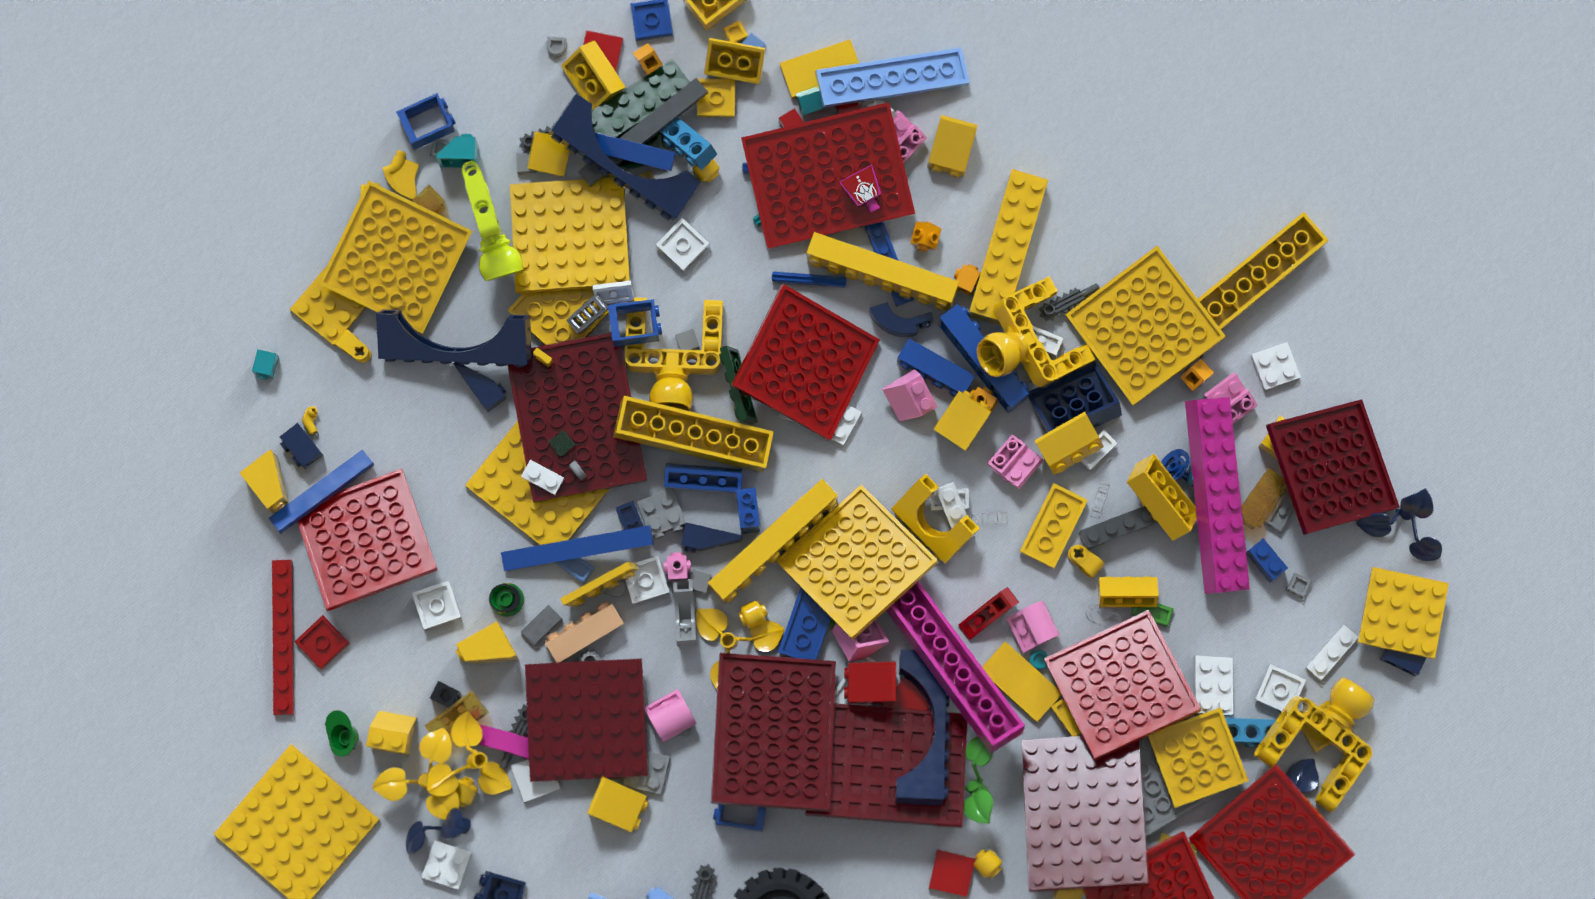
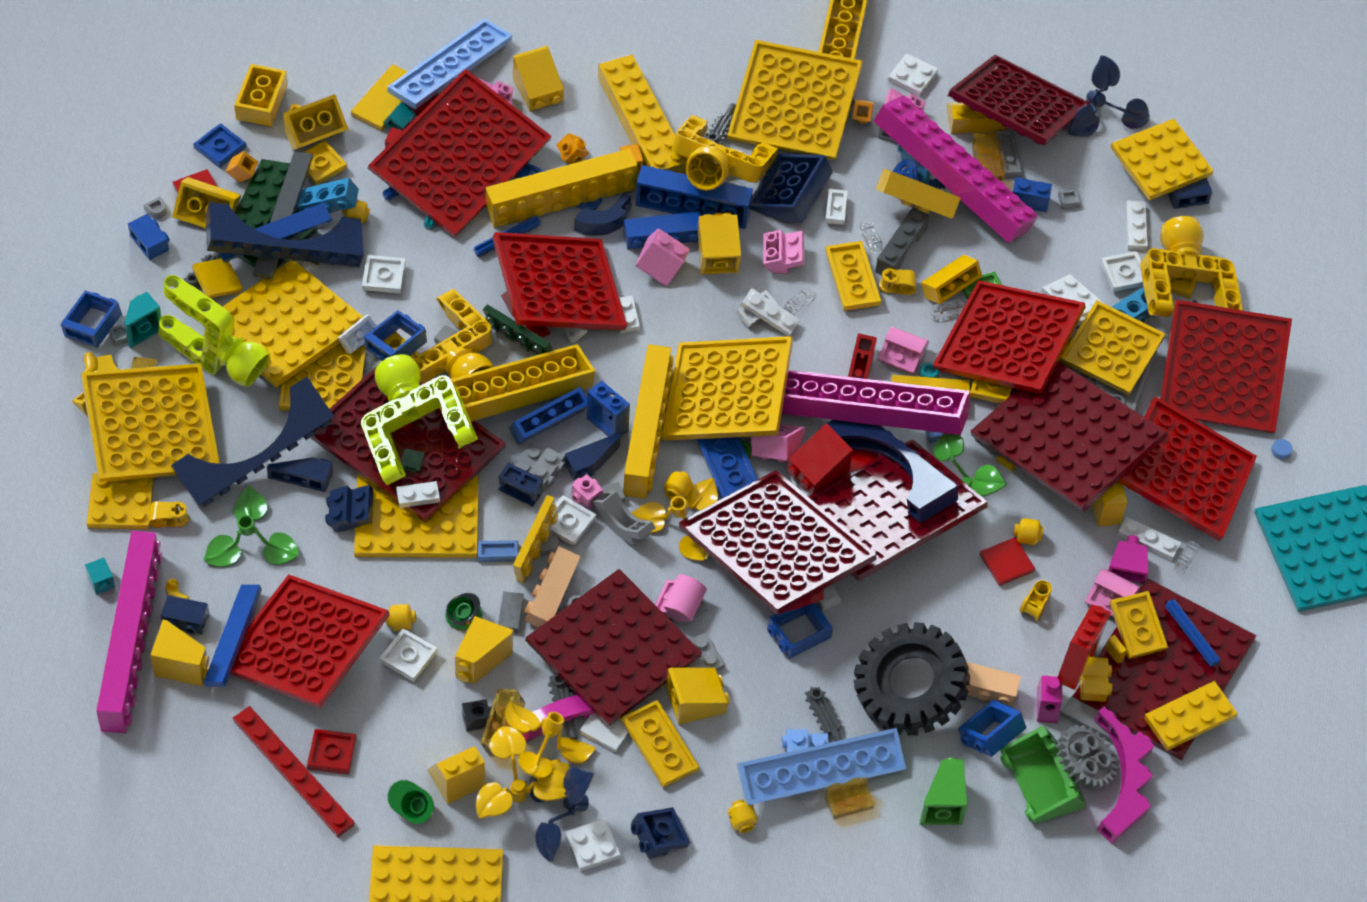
camera: 40 degrees left, 25 degrees down
(247, 433) = (128, 632): none -> dark pink brick
(372, 407) = (247, 508): none -> bright green plant
(454, 569) = (401, 617): none -> yellow head
(489, 445) = (349, 507): none -> dark blue plate
(527, 72) = (148, 236): none -> blue brick
(542, 357) = (341, 408): yellow tile -> none
(559, 822) = (660, 744): none -> yellow tile
(572, 320) = (353, 376): flat silver slope -> none
(577, 471) = (443, 468): light grey tile -> none
(577, 548) = (491, 529): blue tile -> none
(589, 396) = (399, 380): none -> neon yellow piece
(863, 188) = (496, 138): torso -> none
(911, 511) = (732, 327): yellow arch -> none
(1069, 443) = (813, 207): yellow slope -> none

